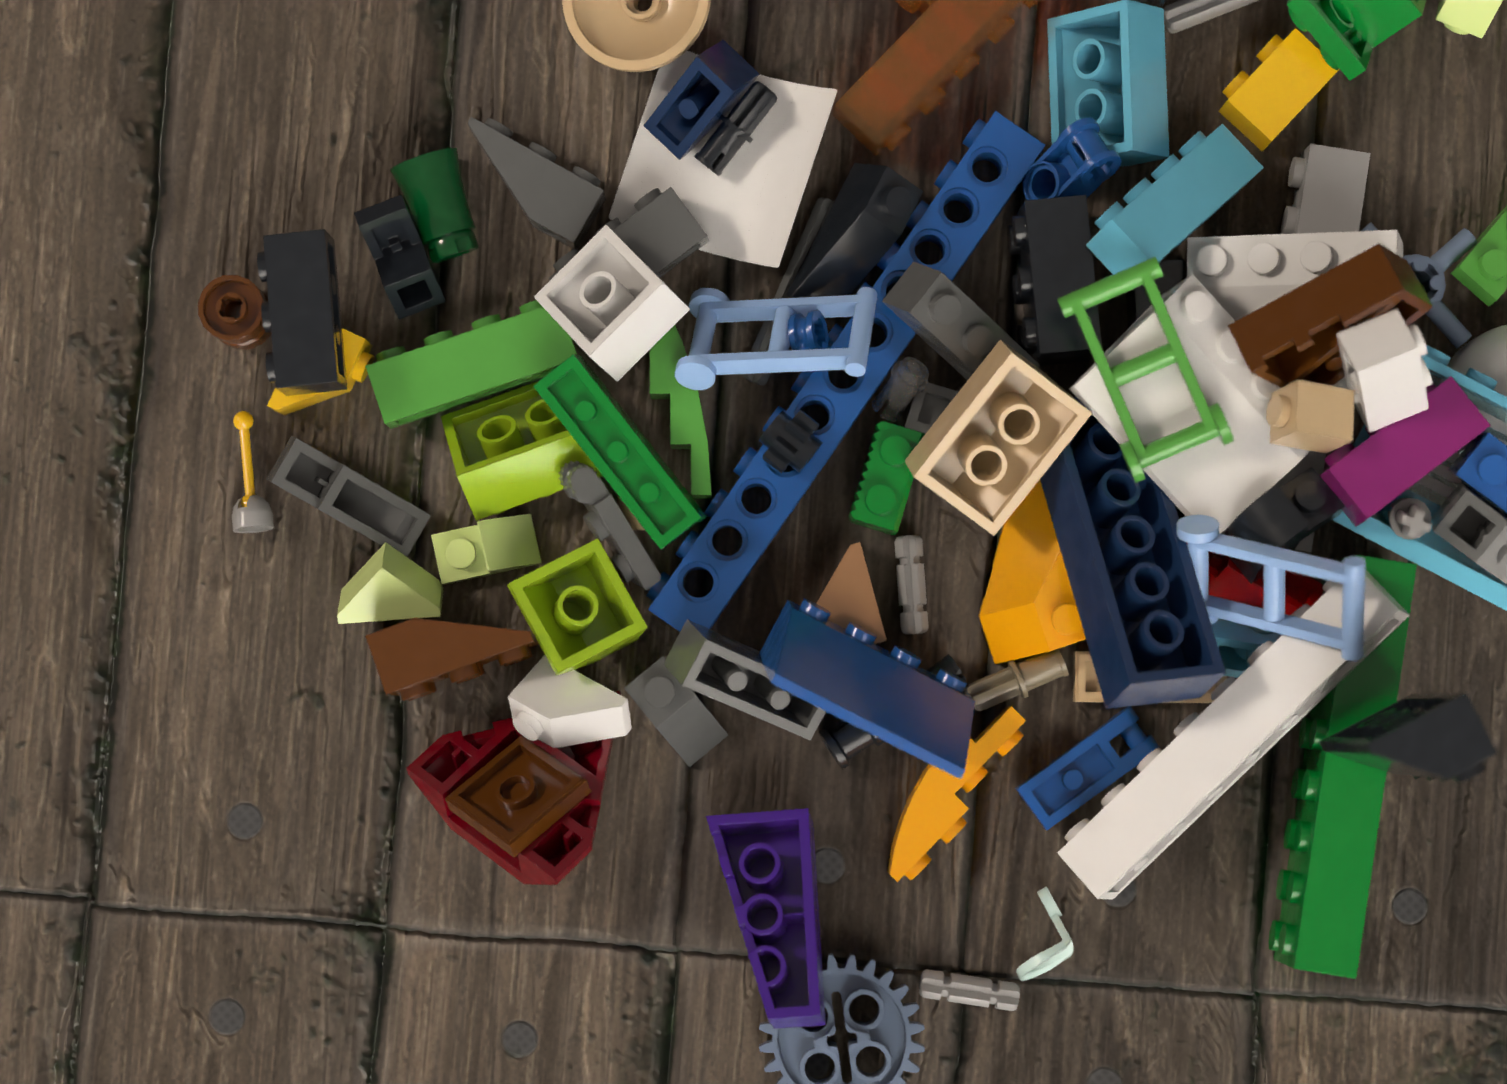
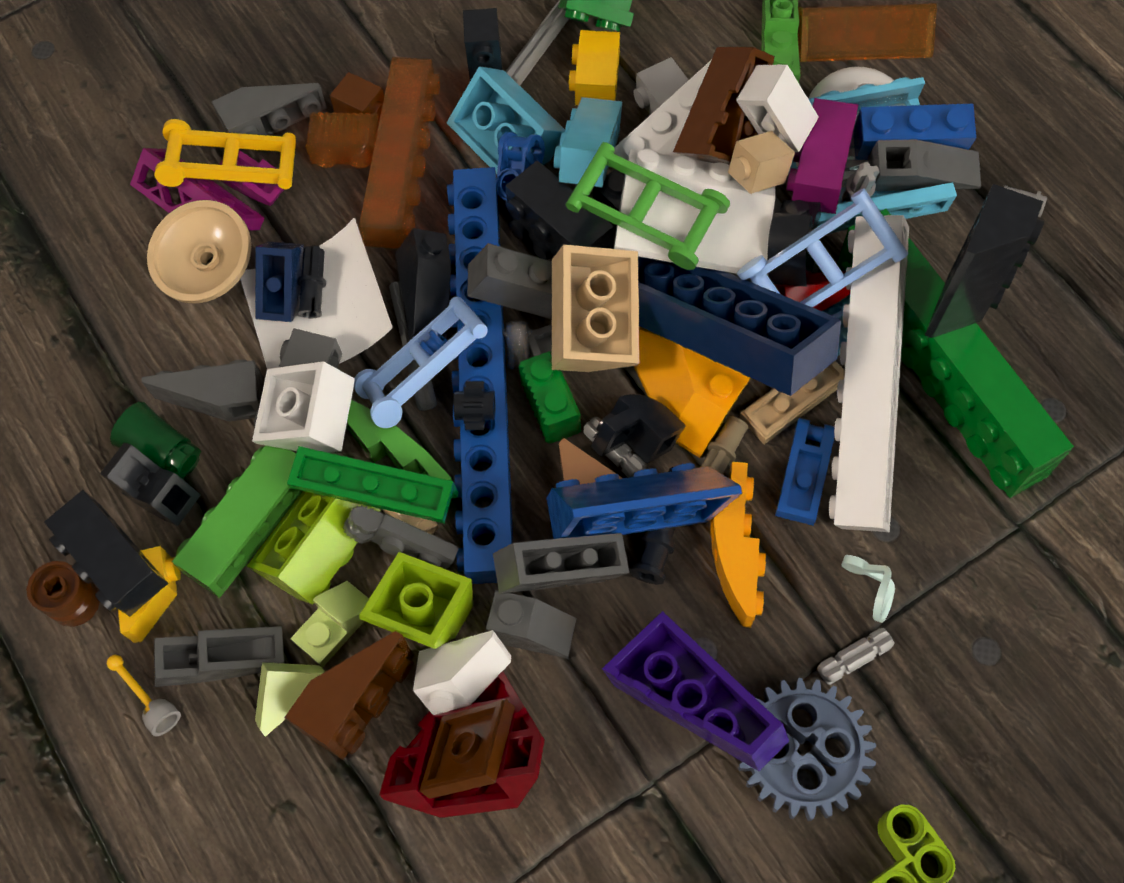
camera: 30 degrees left, 20 degrees down
(956, 588) = (642, 425): none -> black brick

